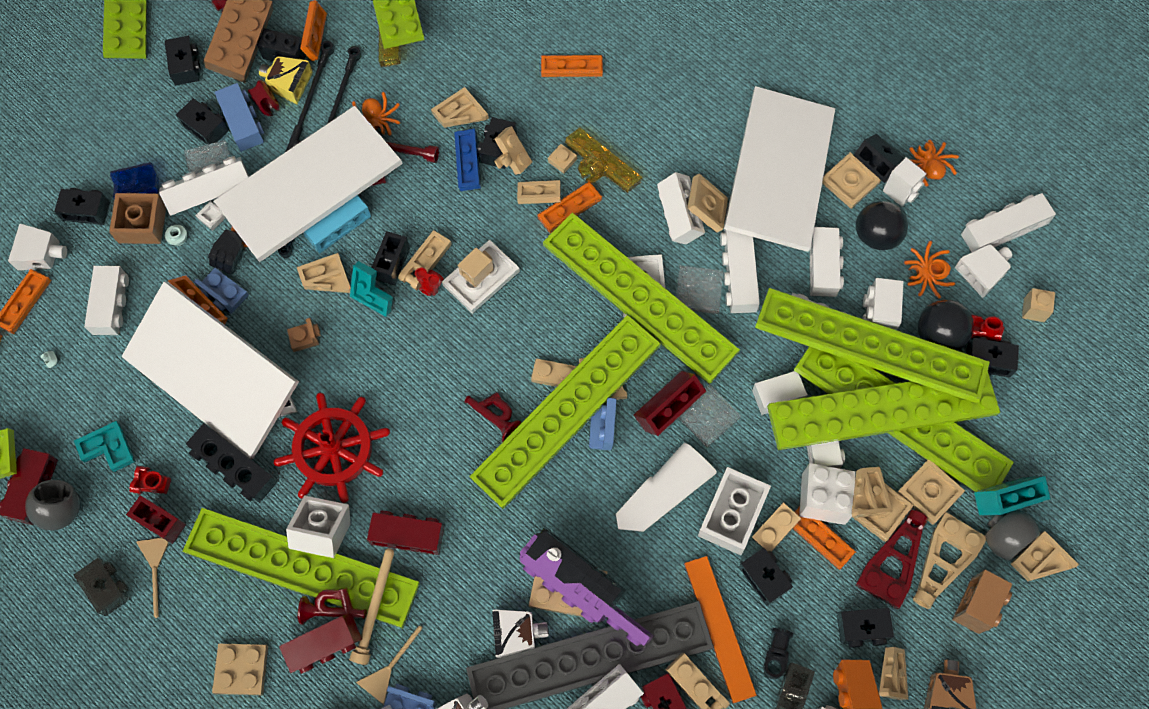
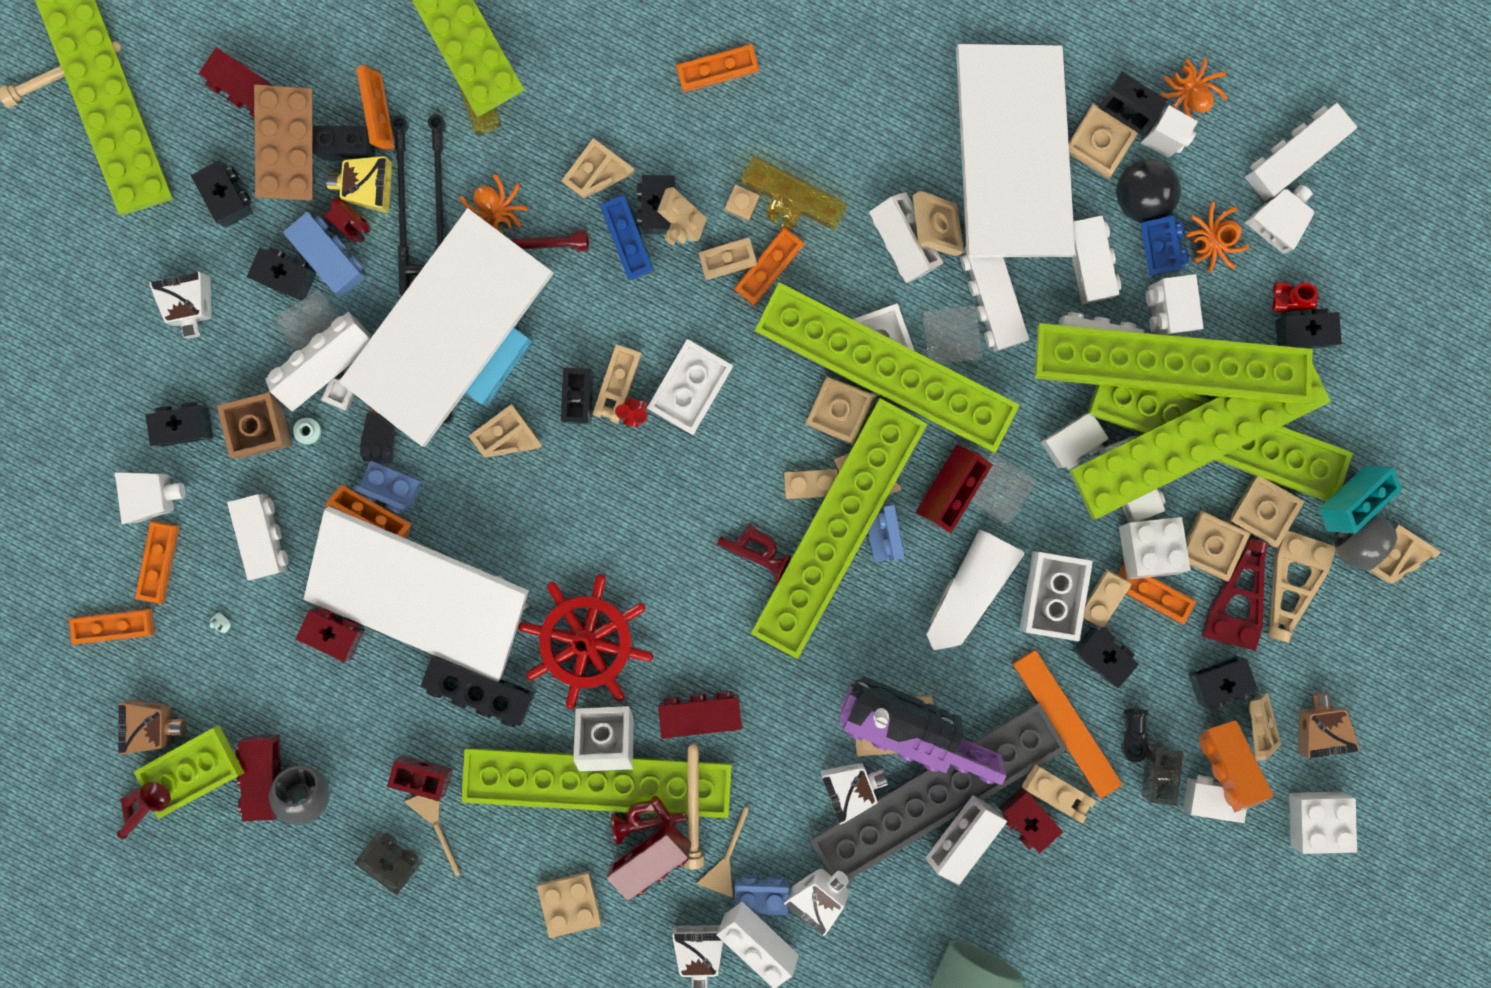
camera: 15 degrees left, 20 degrees up
(108, 441) = (332, 701): teal plate -> none
(121, 381) = (315, 634): none -> dark red brick
(124, 122) = (184, 301): none -> white torso
(135, 179) = (231, 378): clear blue bracket -> none
(145, 481) = (388, 735): red plate -> none
(304, 336) = (506, 516): medium nougat bracket -> none
(365, 292) = (558, 442): teal plate -> none
(476, 266) = (684, 382): tan brick -> none
(593, 321) = (840, 410): none -> tan plate
(870, 494) = (1203, 539): tan wing -> none
(885, 262) = (1164, 245): none -> blue bracket
(946, 324) = (1251, 311): black piece -> none
(983, 602) = (1346, 626): medium nougat brick -> none
(1038, 305) = (1352, 251): tan brick -> none

